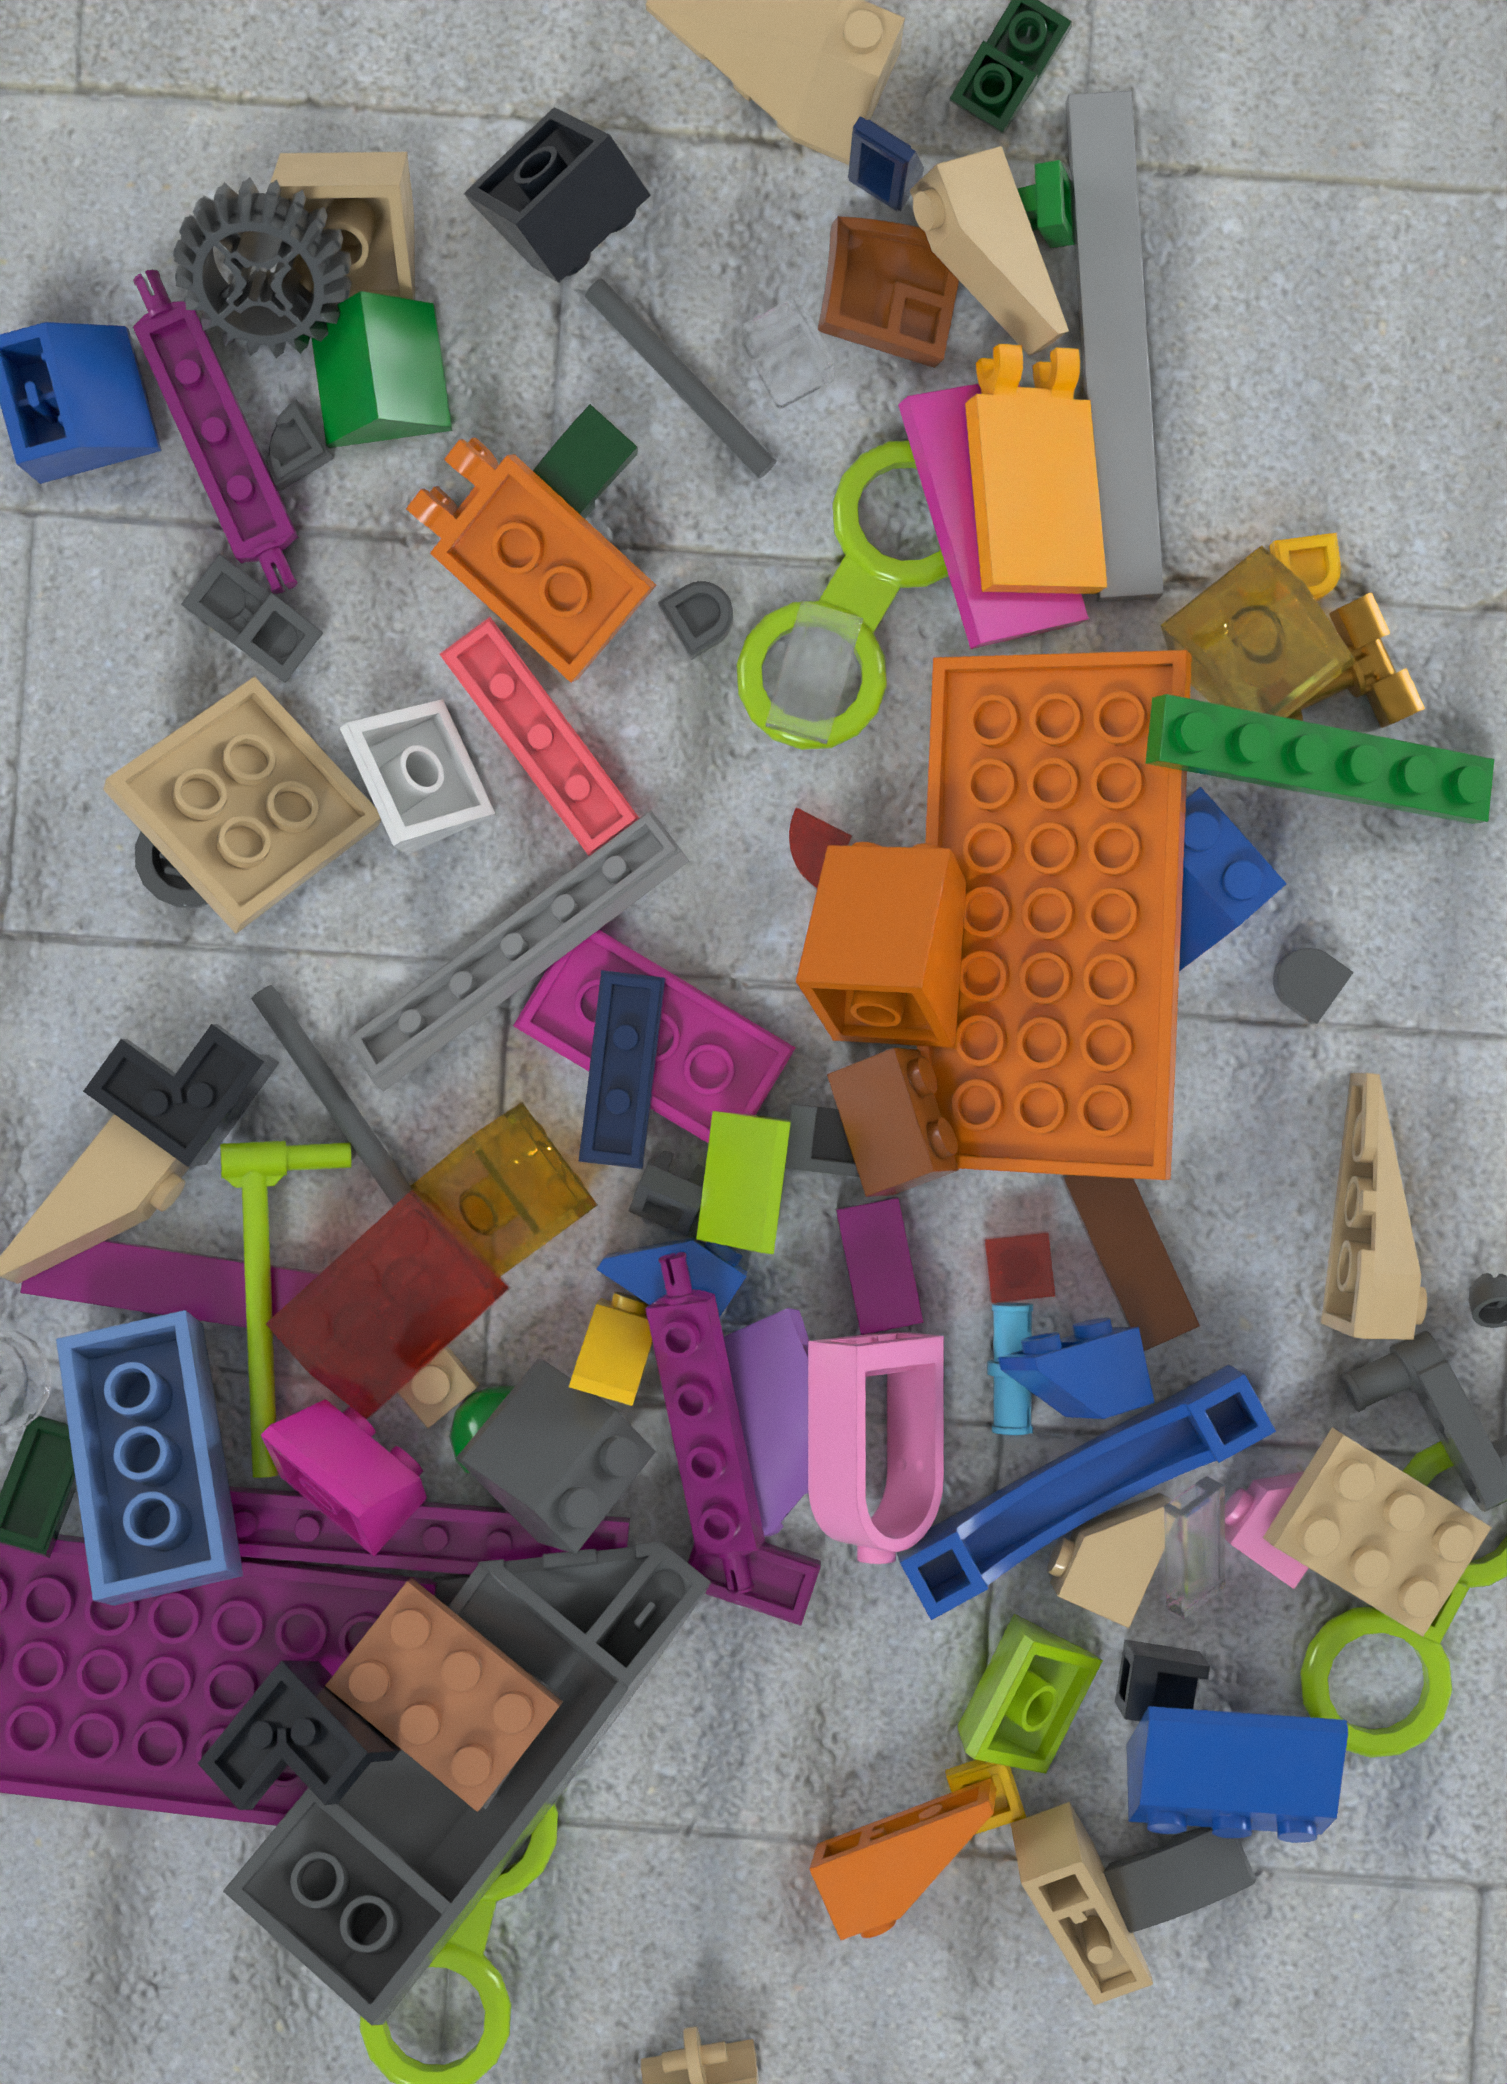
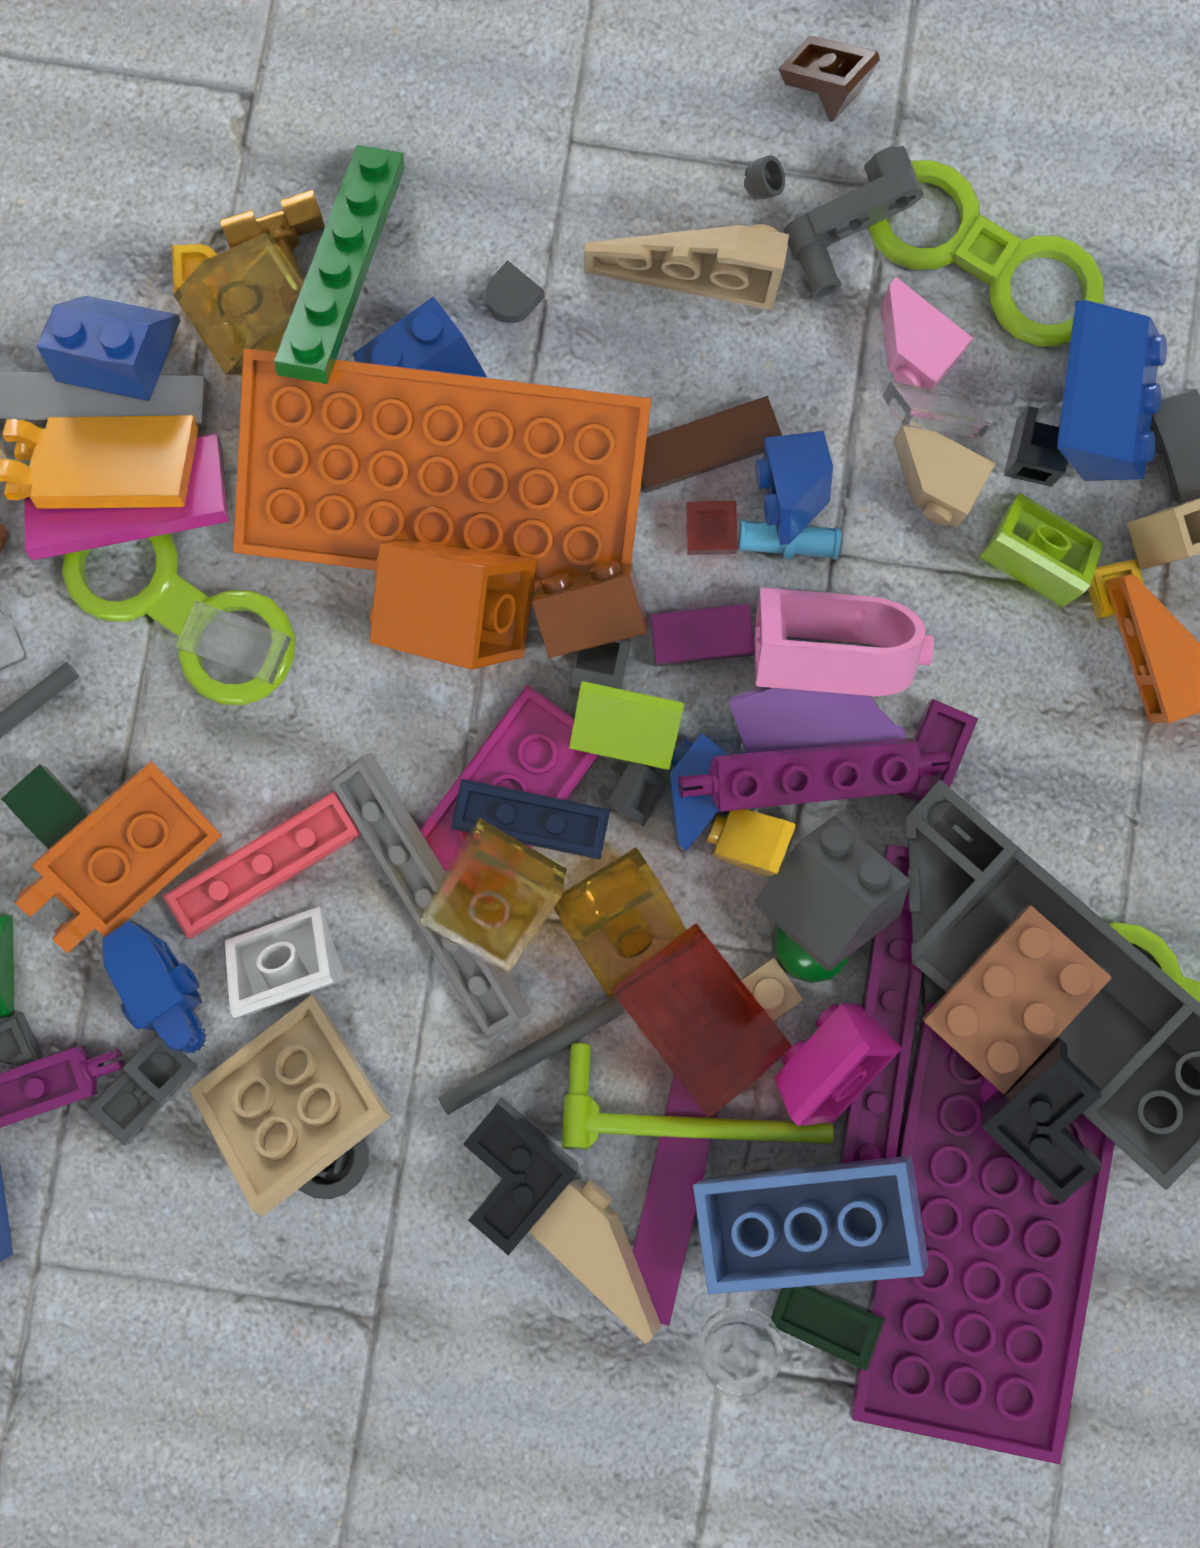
camera: 90 degrees left, 5 degrees down
(375, 620) = (154, 986): none -> blue hinge
(519, 1034) = (494, 896): none -> clear yellow slope
(699, 616) = (181, 732): dark grey tile -> none
(809, 844) = (371, 660): clear red tile -> none
(1162, 1442) = (916, 561): blue arch -> none
(1192, 468) = (107, 345): none -> blue slope
(1376, 1532) = (933, 272): tan plate -> none

